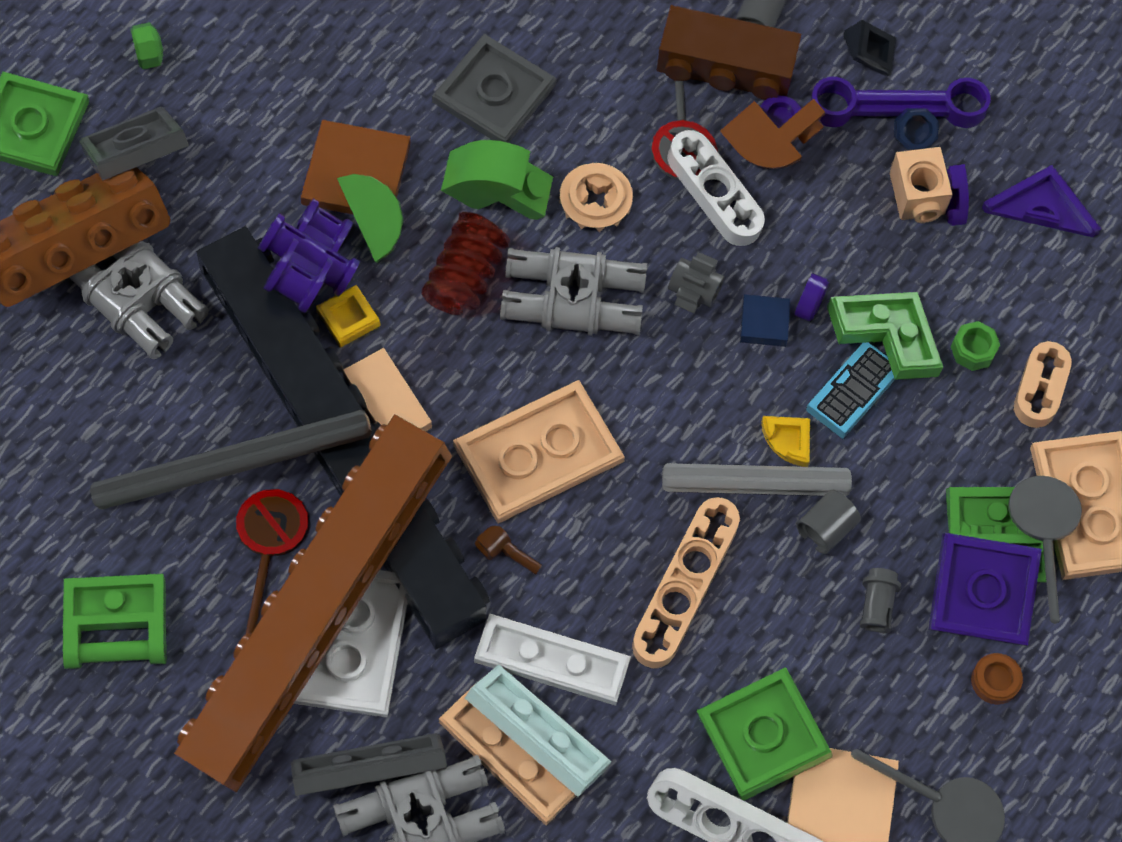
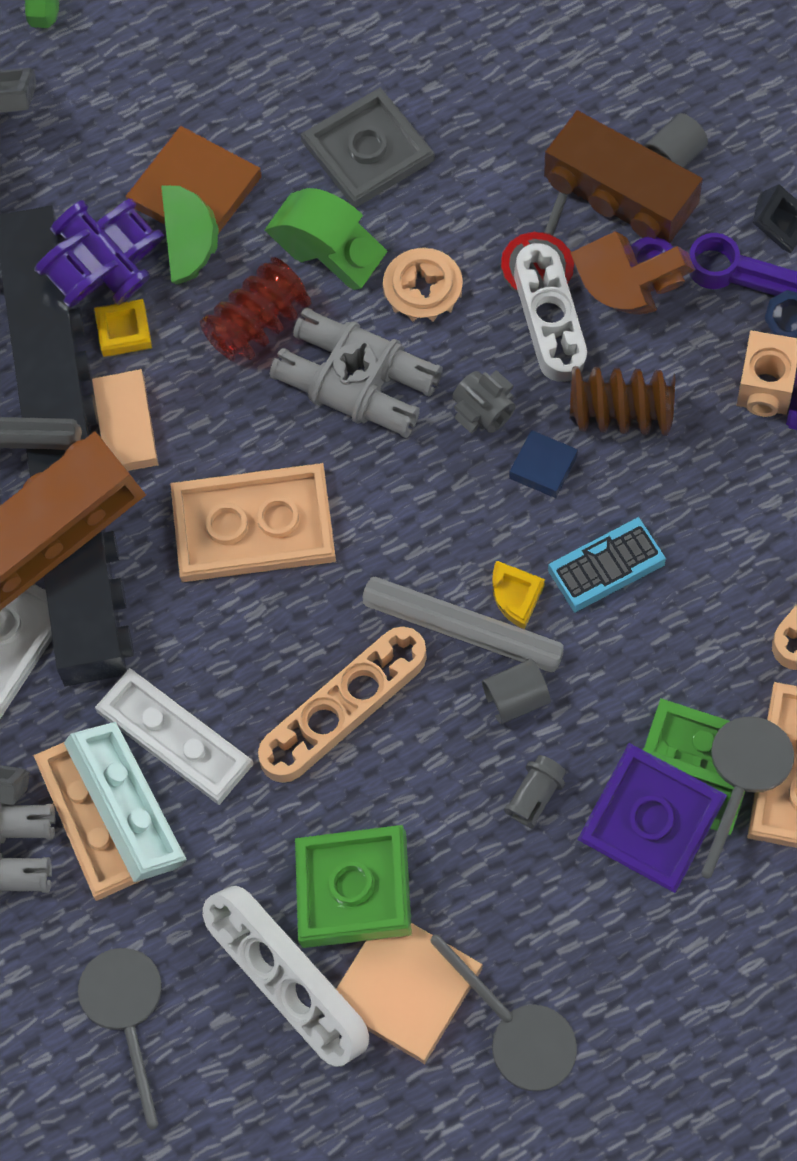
camera: 30 degrees right, 0 degrees up
(495, 540) = (167, 597): reddish brown hand -> none
(810, 243) = (622, 400): none -> reddish brown piece
(812, 297) = (600, 454): dark purple tile -> none
(895, 321) = (677, 505): bright green tile -> none
(975, 346) = (755, 560): bright green tile -> none
(996, 678) = (627, 916): dark orange tile -> none

